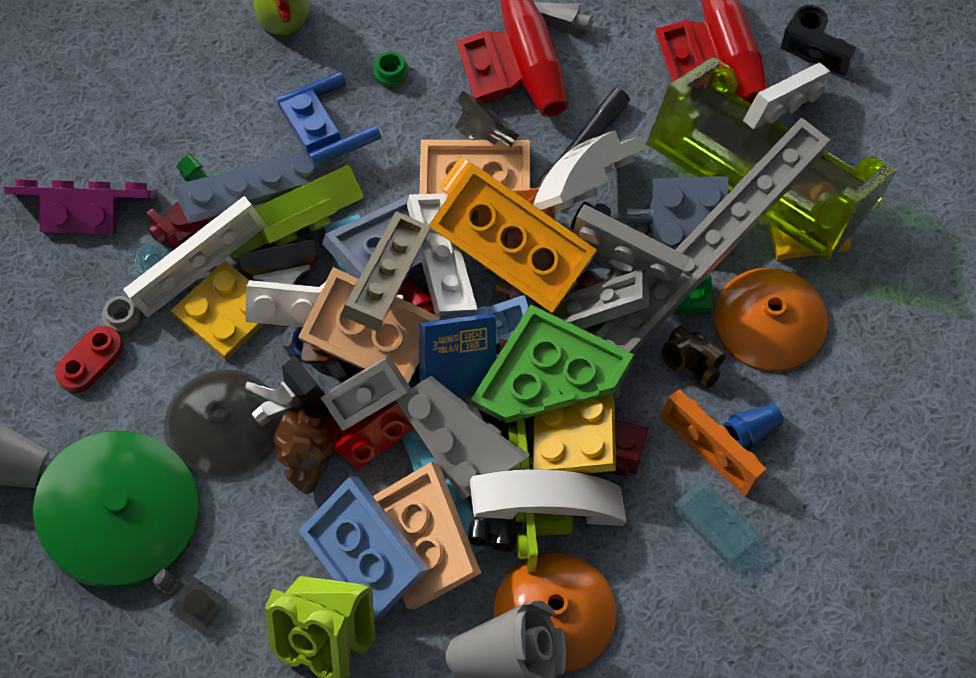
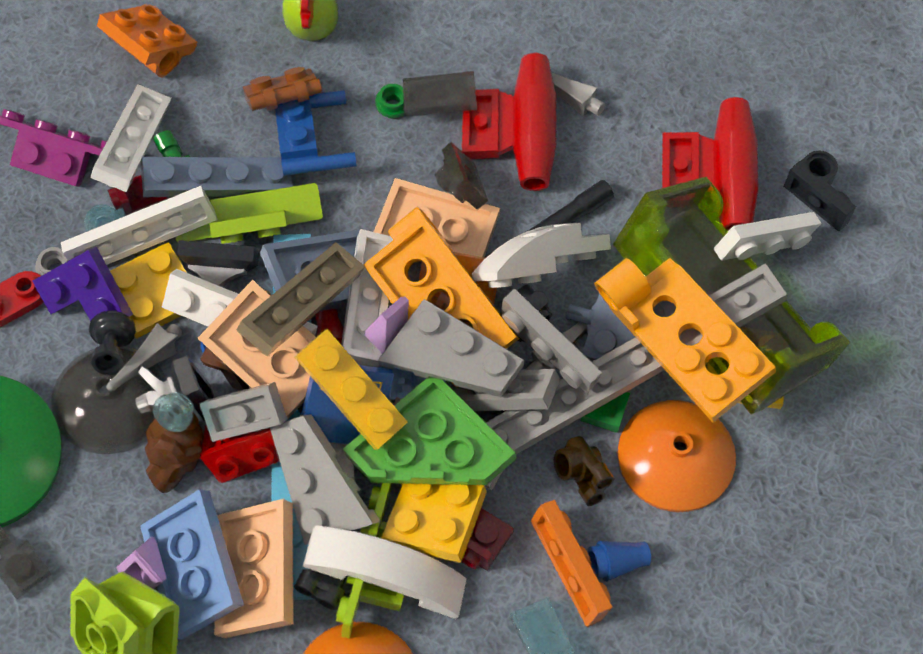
camera: 15 degrees right, 0 degrees up
(132, 72) = (148, 37): none -> orange plate
(155, 172) = (130, 138): none -> white plate
(167, 318) = (85, 280): none -> dark purple plate
(205, 359) = (111, 332): none -> black piece
(251, 363) = (156, 348): none -> light grey piece
(275, 91) = (269, 92): none -> dark orange plate
(303, 404) = (173, 411): none -> clear light blue plate
(317, 562) = (145, 564): none -> lavender slope
(436, 48) = (440, 93): none -> clear smoke hinge
(463, 340) = (351, 389): none -> yellow plate
(474, 274) = (388, 324): none -> lavender slope
(540, 279) = (449, 350): none -> light grey wing
(690, 184) = (633, 301): none -> light orange hinge

